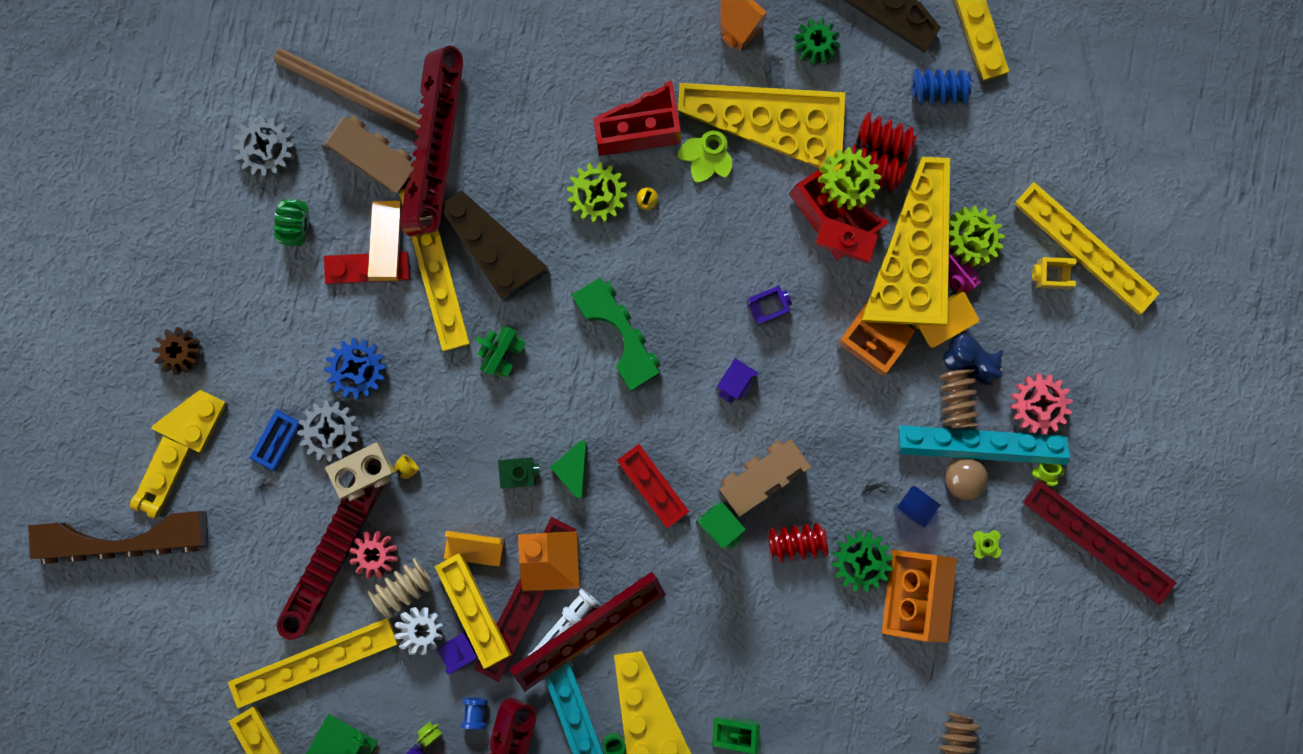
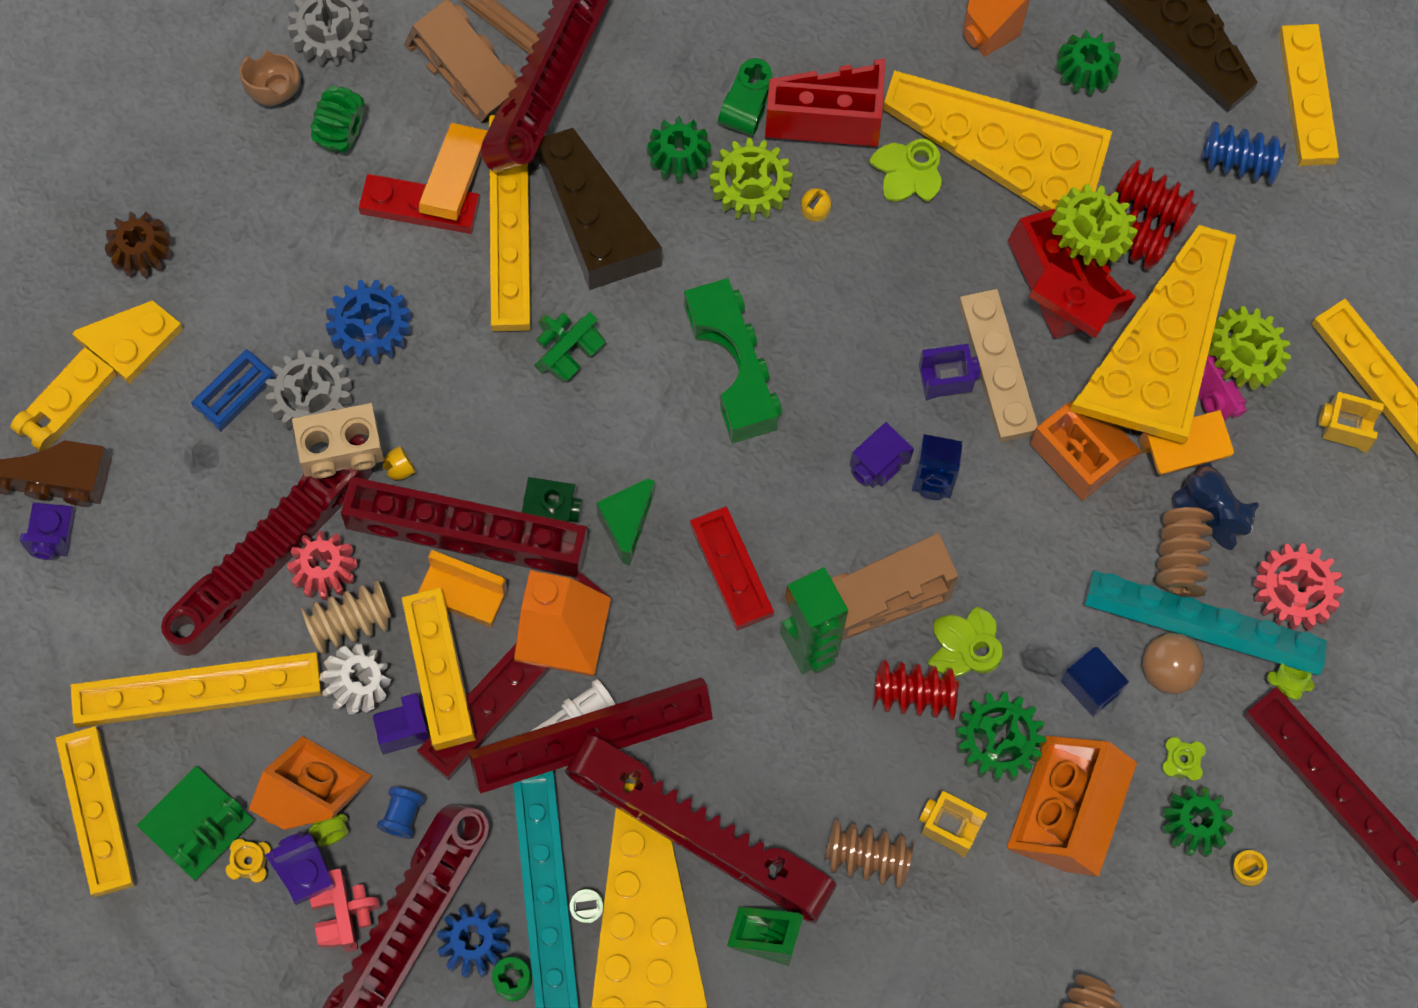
camera: 15 degrees right, 15 degrees down
(179, 575) = (48, 531): none -> dark purple bracket
(233, 200) = (270, 78): none -> medium nougat hair
(408, 711) = (306, 786): none -> orange slope
(463, 505) = (464, 527): none -> dark red brick
(533, 189) = (693, 144): none -> green gear
(579, 135) = (746, 101): none -> green piece
(749, 698) = (605, 770): none -> dark red gear
(777, 379) = (937, 467): none -> clear blue slope
(792, 664) = (869, 854): none -> medium nougat piece
(802, 289) = (998, 365): none -> tan plate
(820, 498) = (961, 641): none -> lime plate
(841, 629) = (952, 822): none -> yellow window
(1015, 583) = (1205, 835): none -> green gear
(1041, 604) = (1247, 861): none -> yellow hinge

